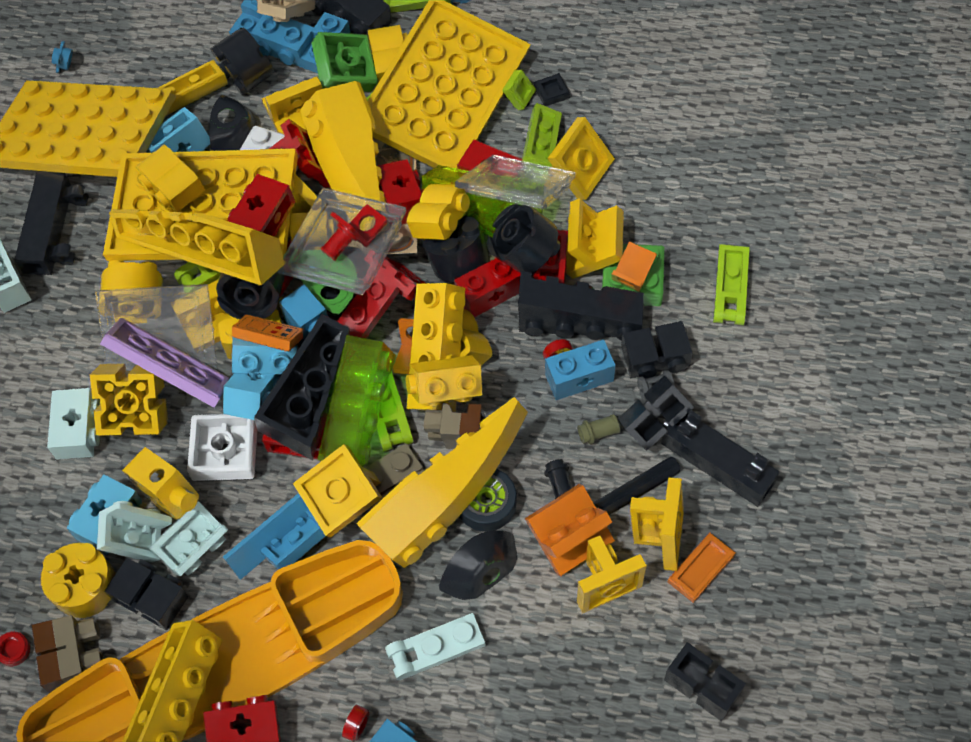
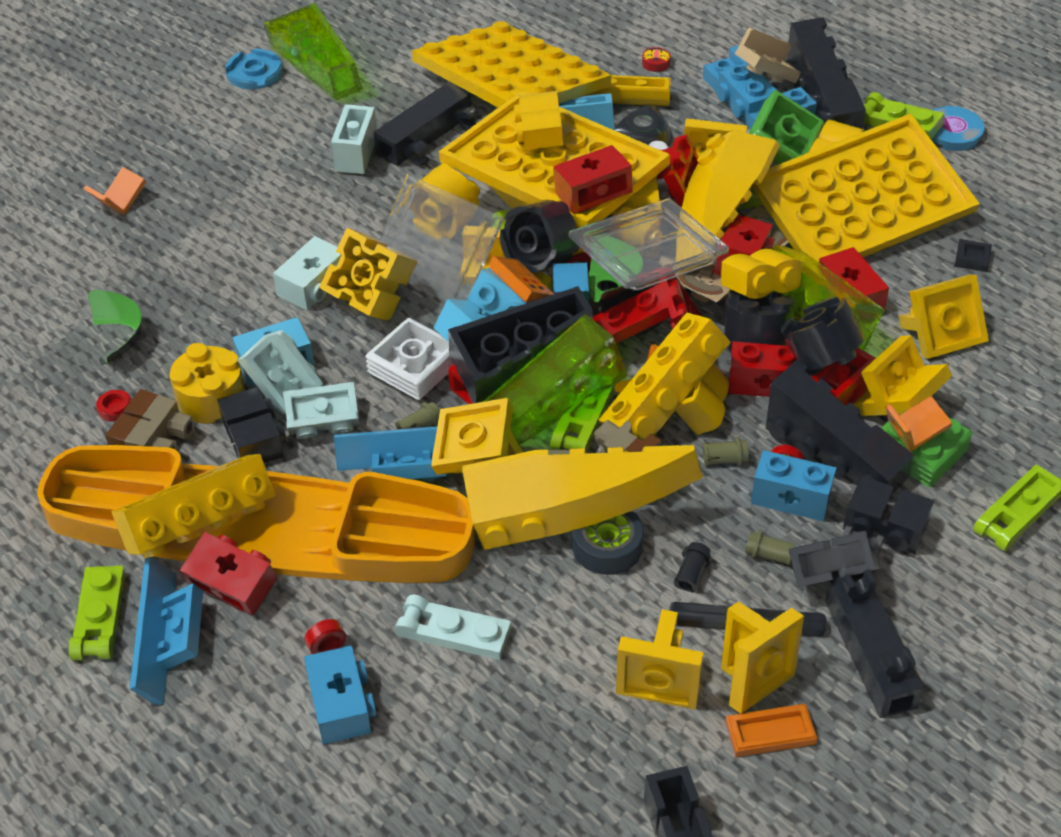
camera: 35 degrees right, 15 degrees down
(62, 57) = (547, 19): dark azure plate -> none
(165, 361) = (416, 254): lavender tile -> none
(170, 494) = (334, 350): yellow torso -> none
(182, 44) = (656, 59): none -> tile
(202, 241) = (523, 170): yellow wedge -> none
(242, 60) = (693, 88): black brick -> none
(270, 495) = (424, 417): none -> olive pin
(351, 231) = (651, 233): red bracket -> none
(445, 380) = (641, 397): yellow brick -> none
(467, 568) = (574, 577): black piece -> none
(510, 371) = (725, 452): none -> olive pin
(516, 181) = (857, 286): clear piece -> none
(519, 89) = (937, 236): lime tile -> none
(541, 135) = (925, 274): lime plate -> none
(567, 526) = (658, 588): orange bracket -> none

